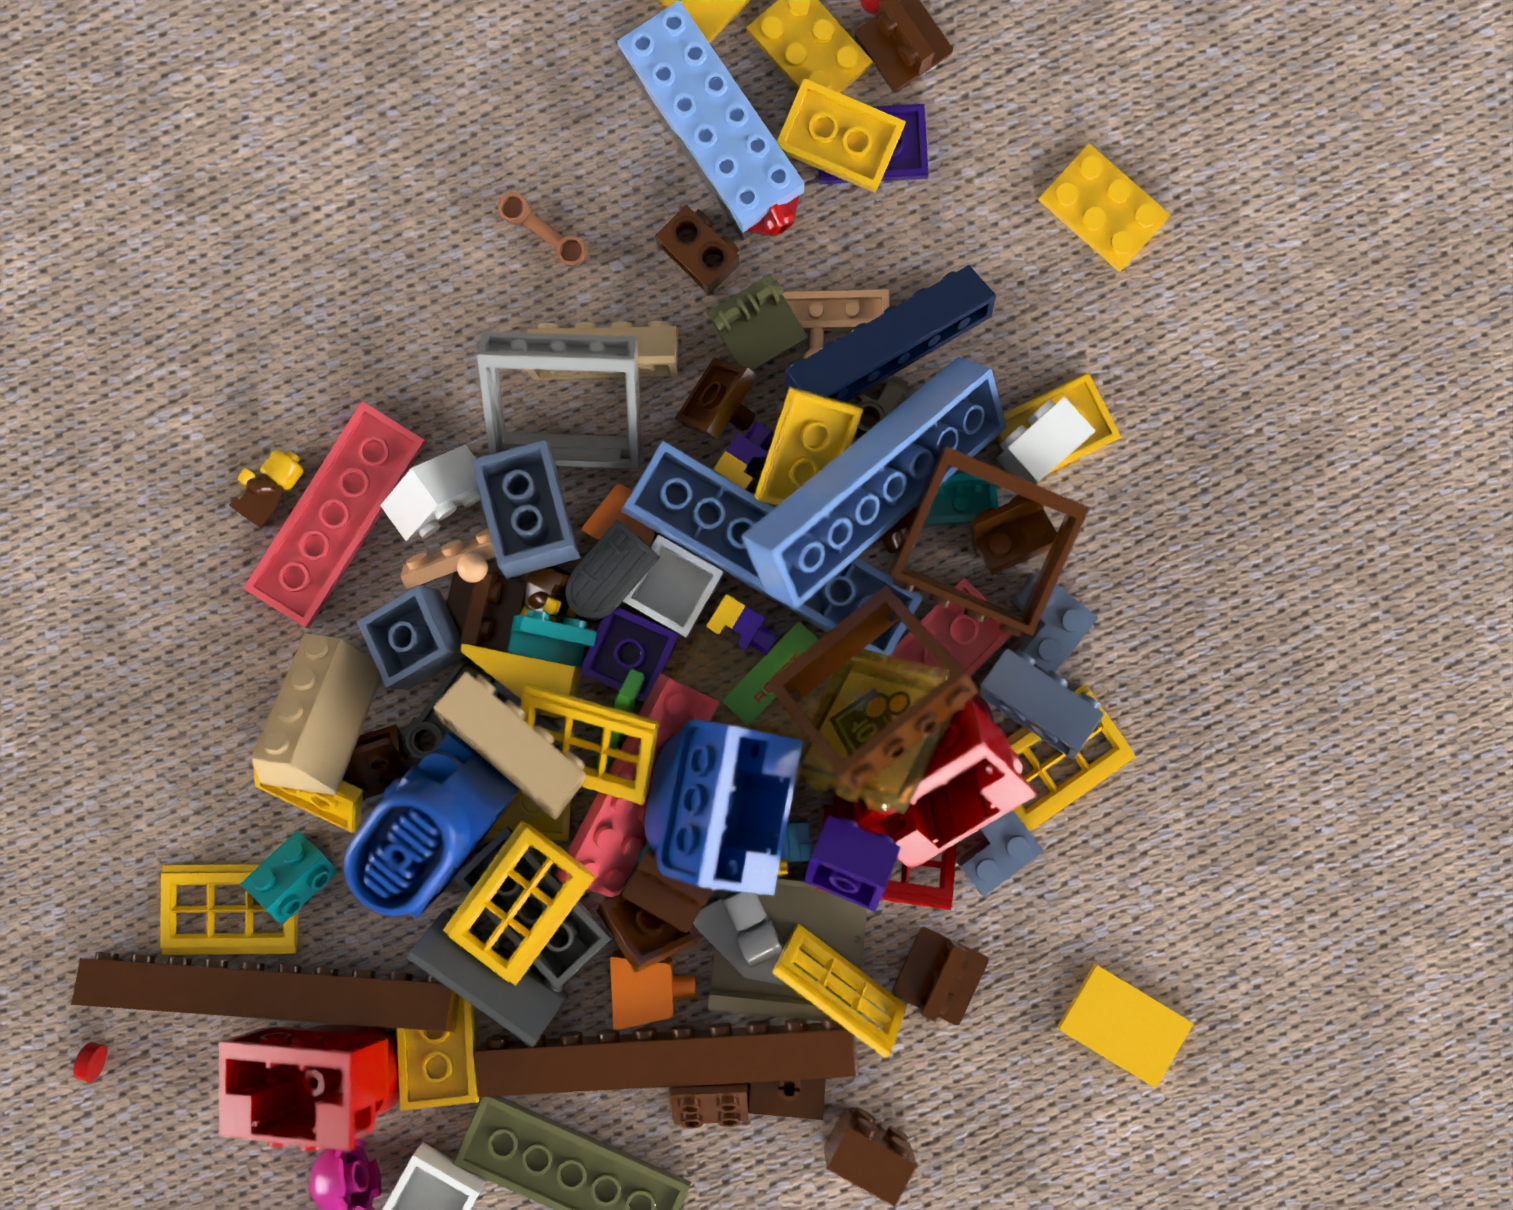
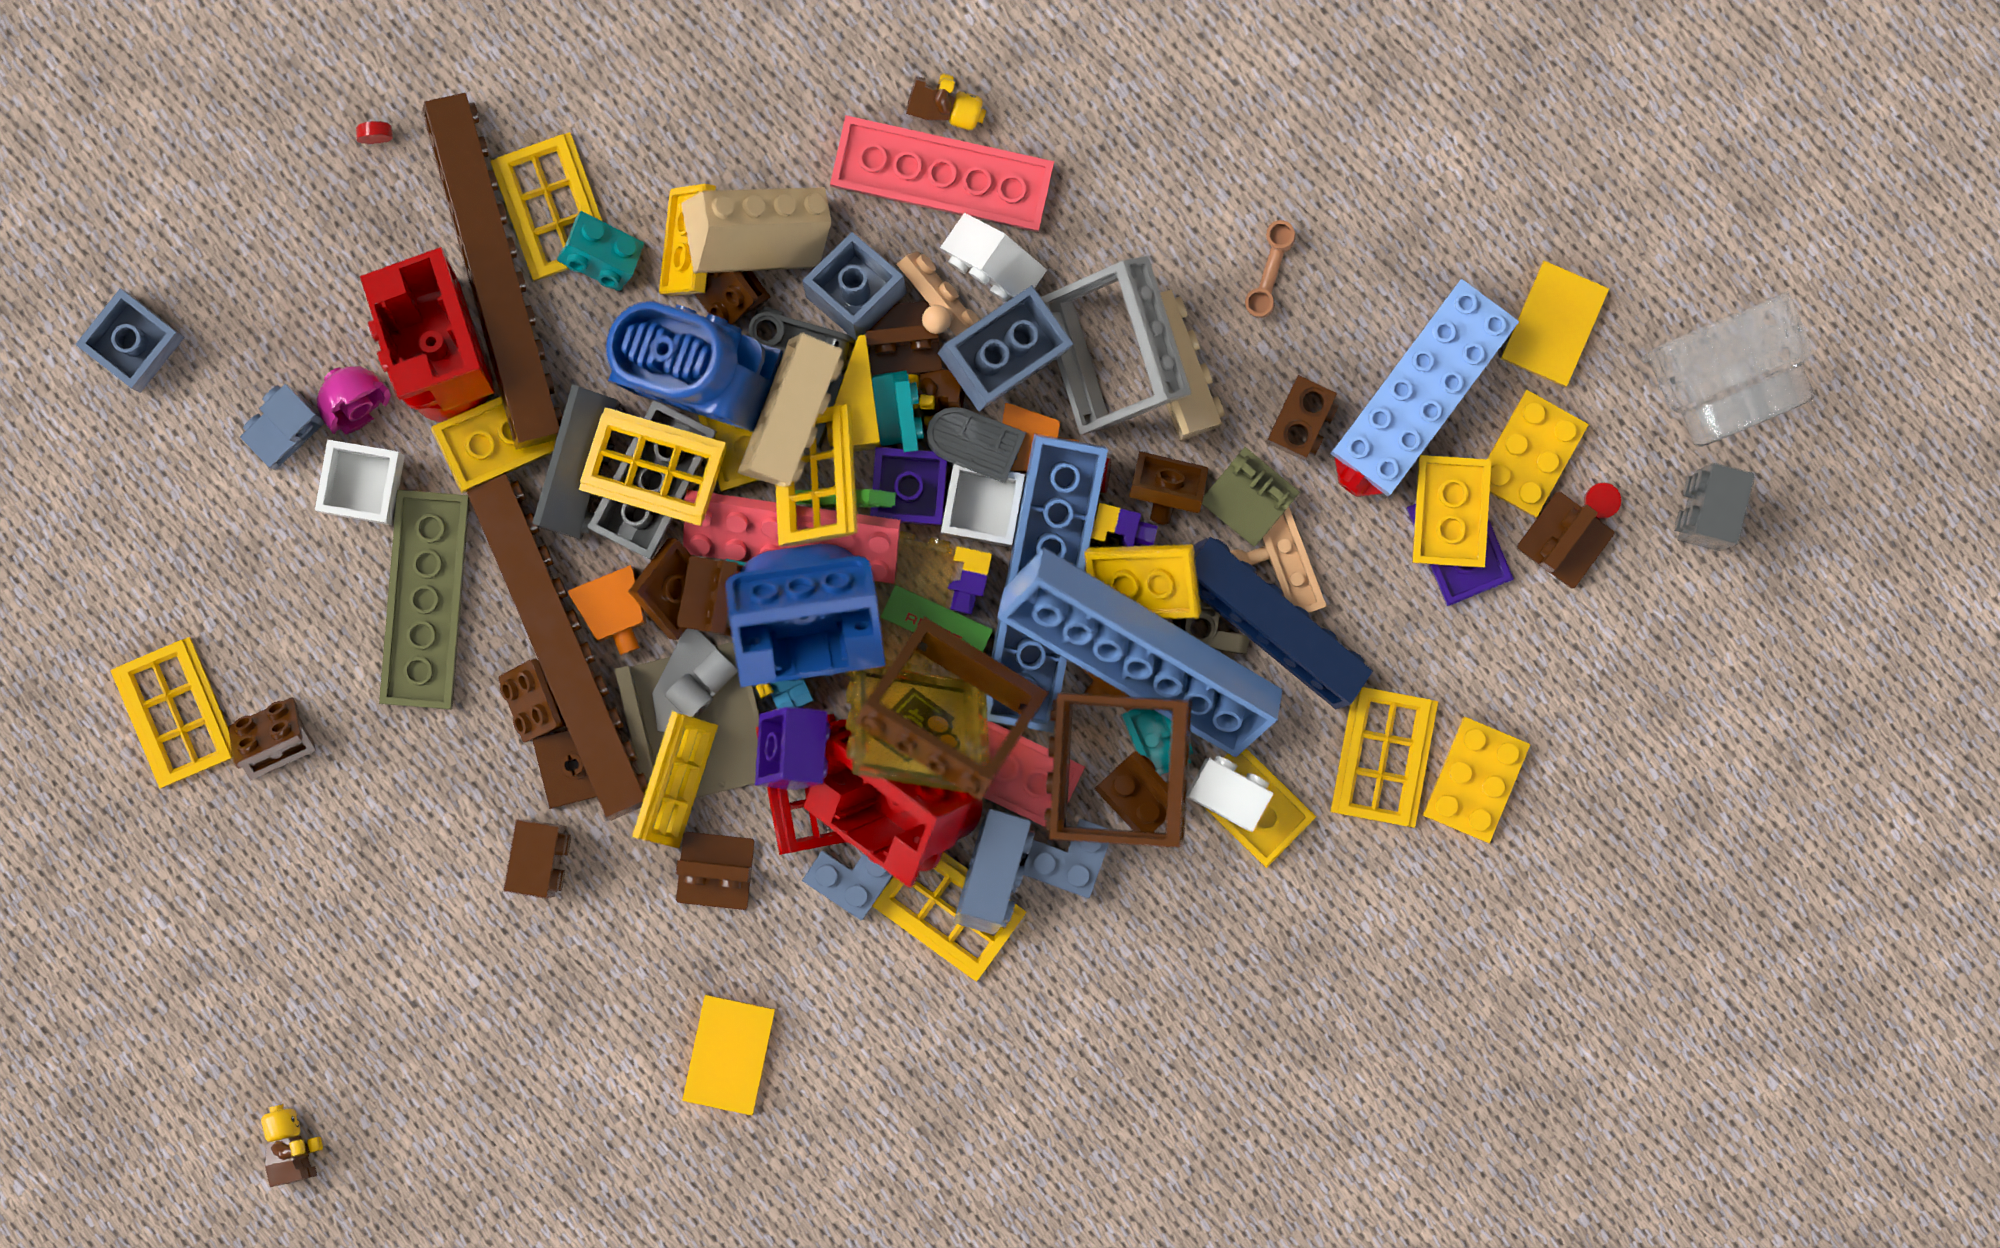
camera: 70 degrees right, 0 degrees up
(1071, 260) = (1416, 761): none -> yellow piece

